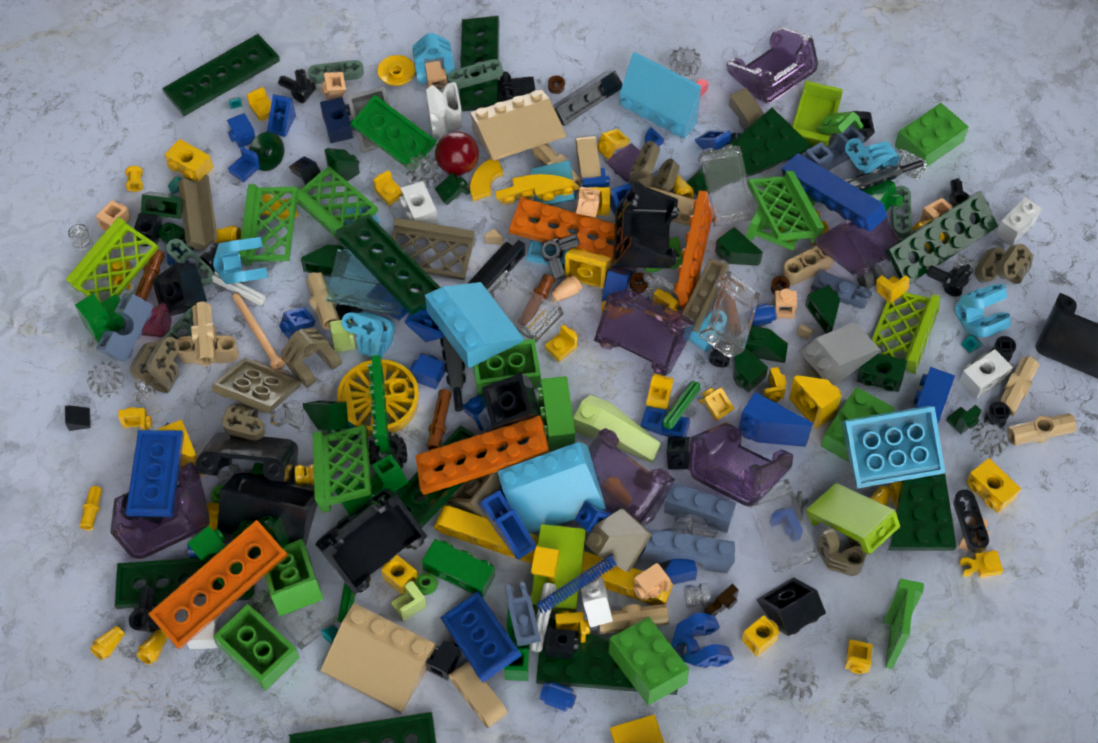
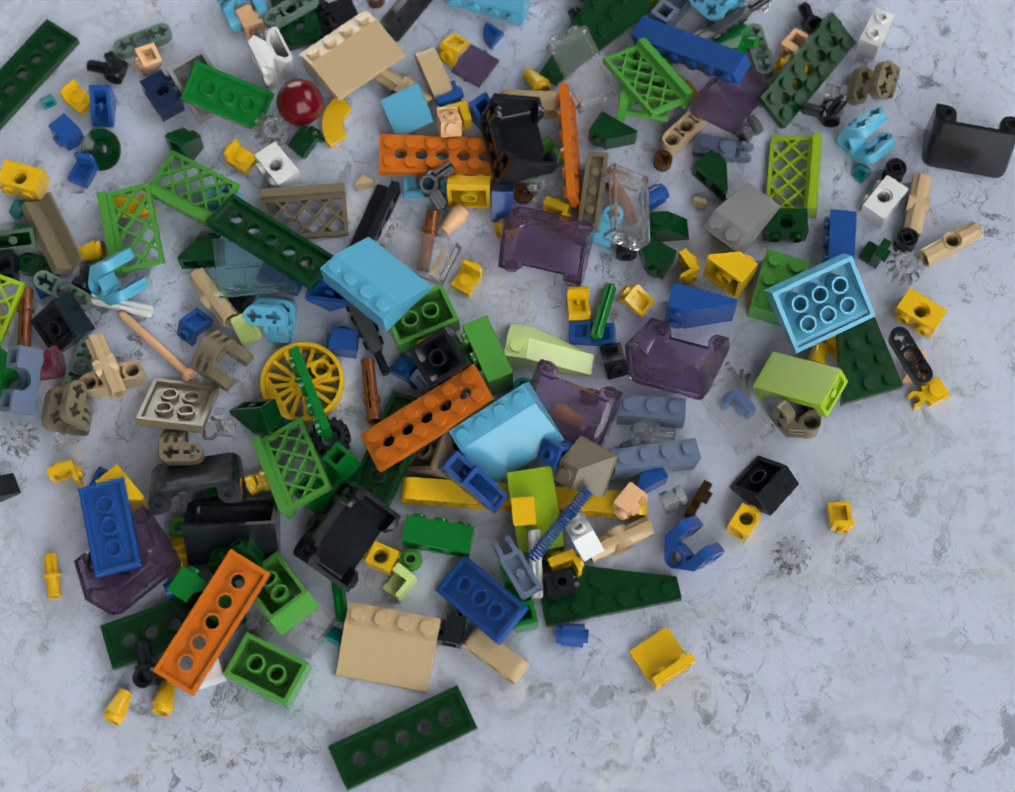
camera: 15 degrees left, 10 degrees up
(305, 169) = (148, 158): black bracket -> none
(396, 70) = (206, 17): yellow dish -> none
(542, 185) = (400, 116): yellow slope -> none
(644, 165) = (495, 69): dark tan piece -> none
(648, 660) = (648, 578): bright green brick -> none
(714, 139) = (554, 22): blue slope -> none
(785, 298) = (672, 175): light nougat brick -> none
(892, 288) = (772, 135): yellow panel -> none
(899, 616) = (873, 474): bright green fence -> none

